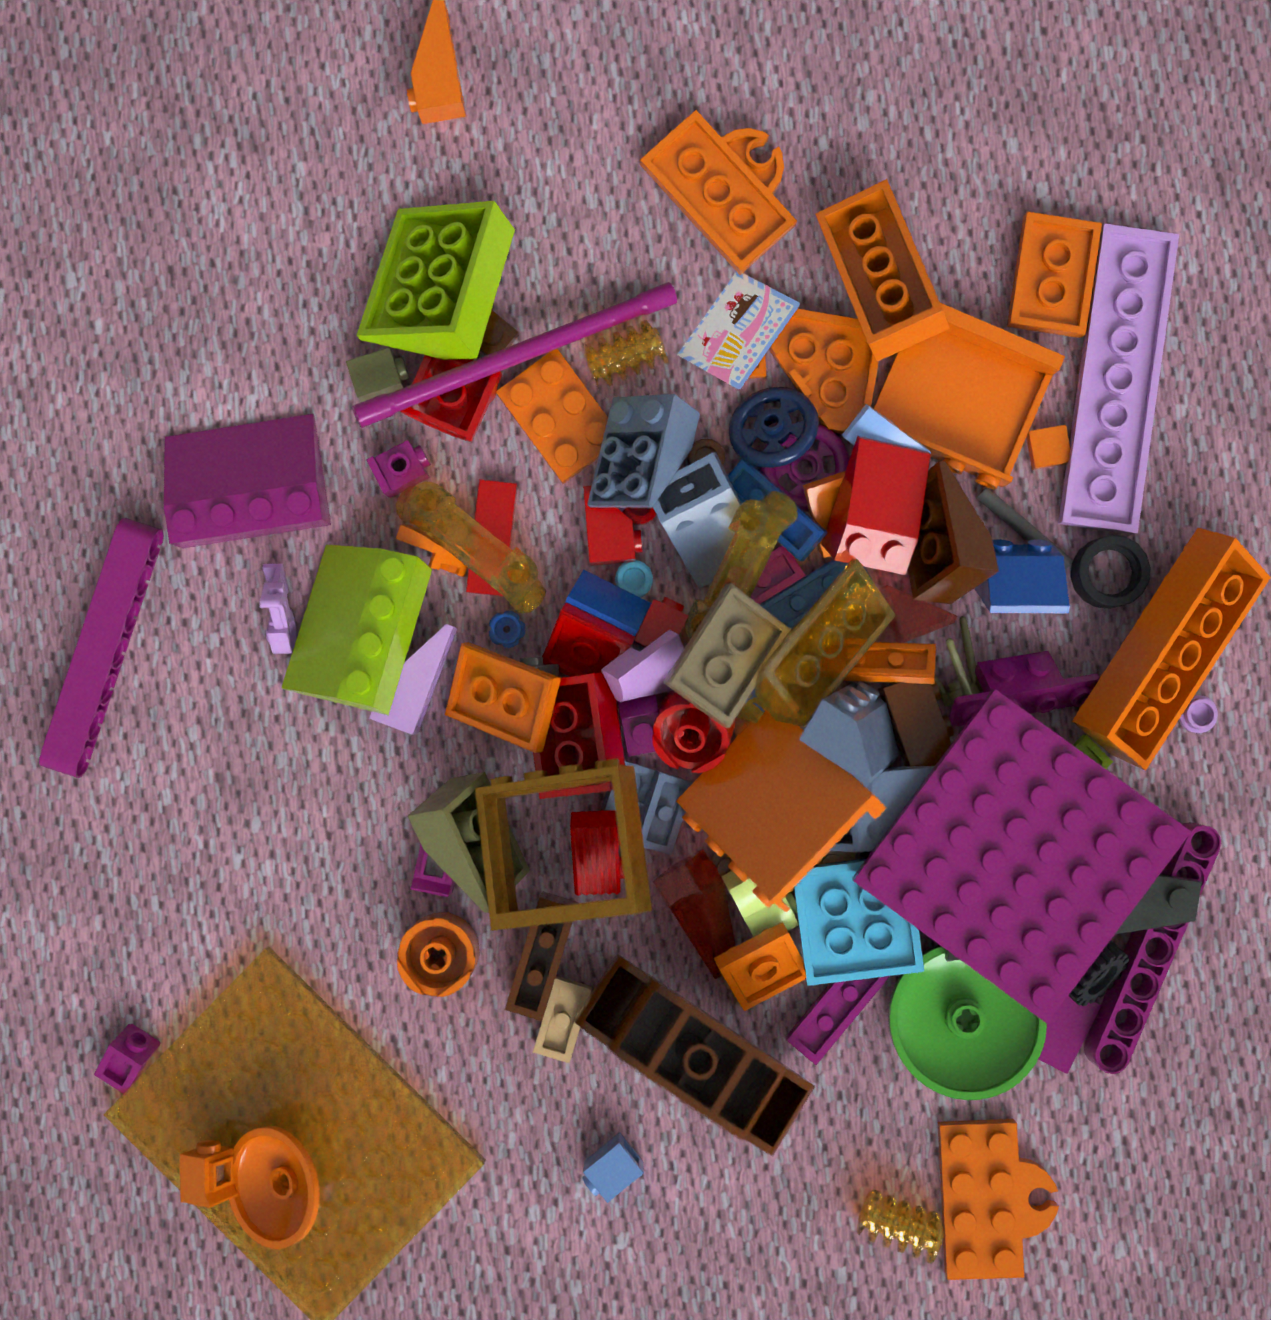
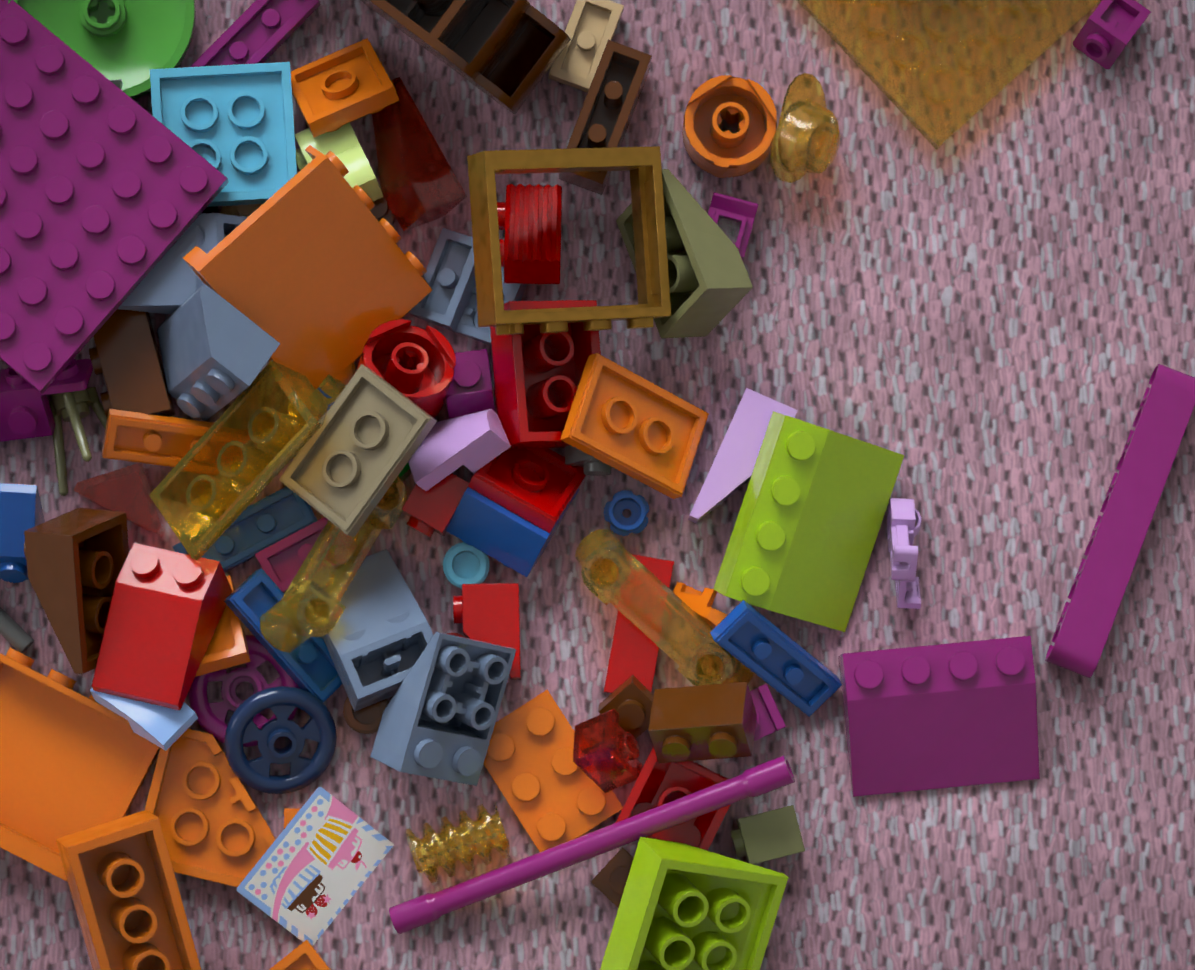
camera: 175 degrees right, 5 degrees down
(373, 952) = (806, 132): none -> clear yellow piece
(377, 514) = (776, 658): none -> blue tile
(430, 453) = (702, 722): none -> reddish brown brick
(493, 470) = (632, 703): none -> reddish brown plate
(502, 430) = (606, 751): none -> clear red brick

